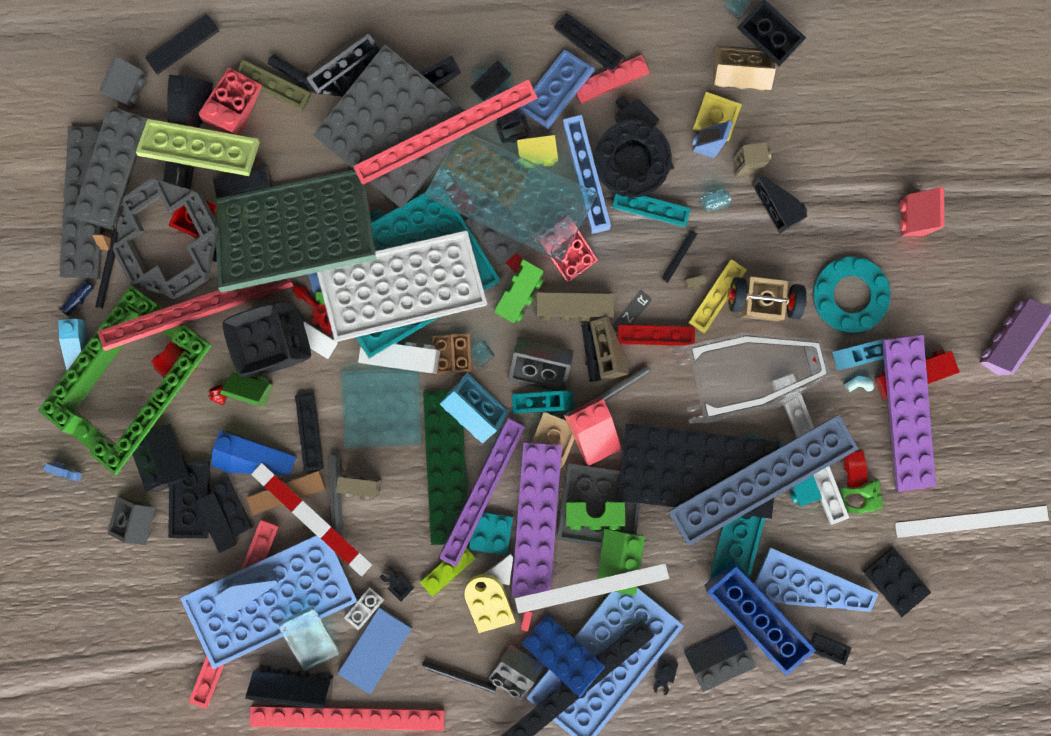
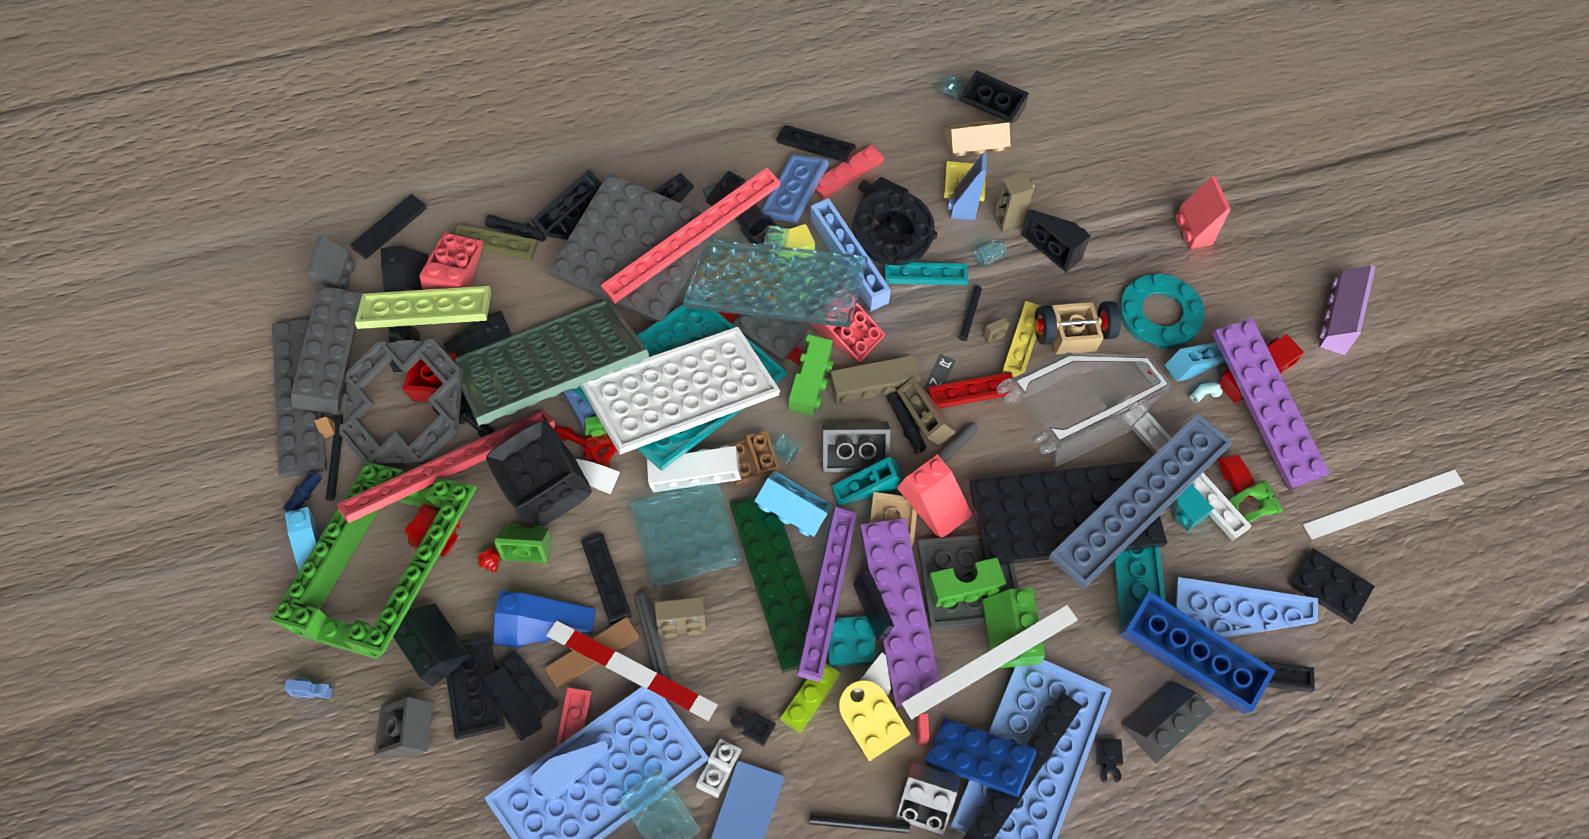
camera: 20 degrees left, 25 degrees down
(515, 512) = (873, 605): none -> black tile
(523, 147) = (776, 236): none -> clear light blue plate

